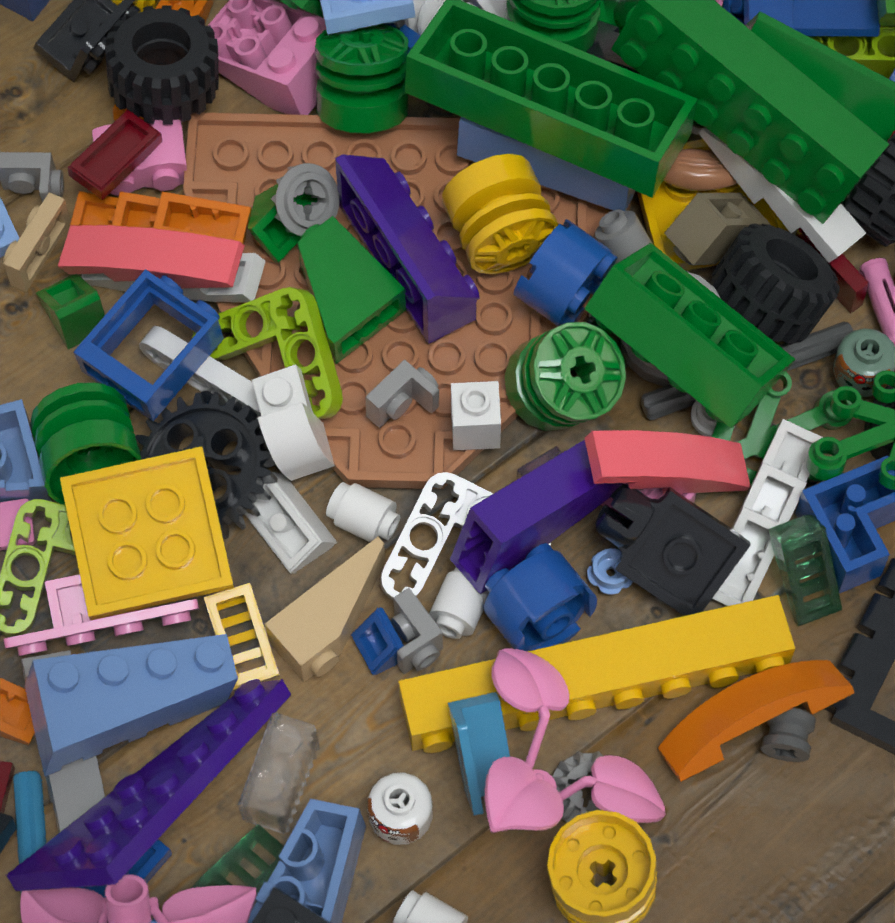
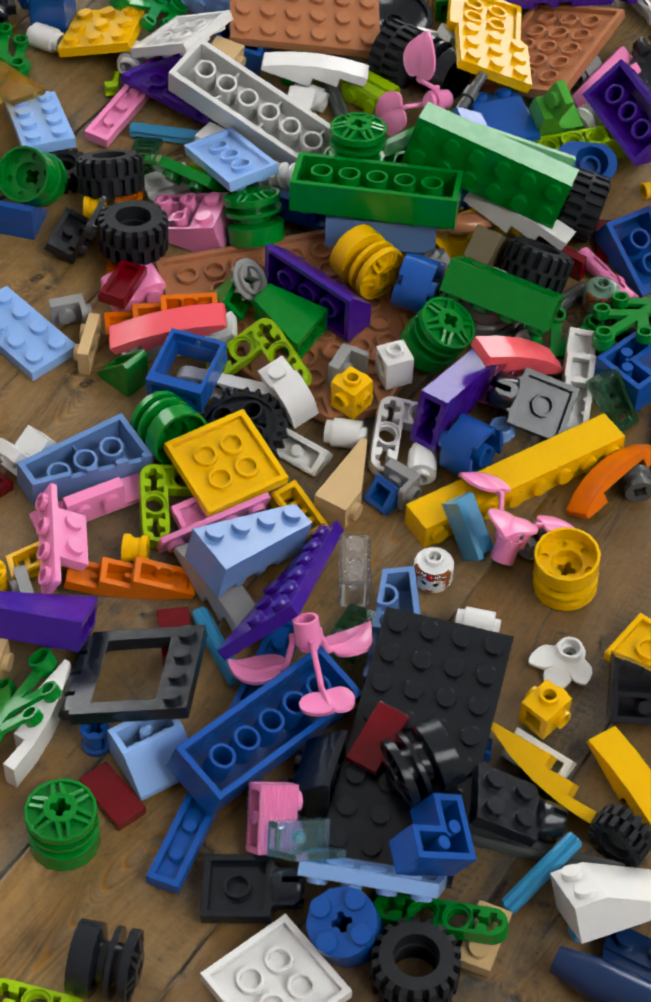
camera: 20 degrees left, 15 degrees down
(389, 450) = (351, 392): none -> yellow brick

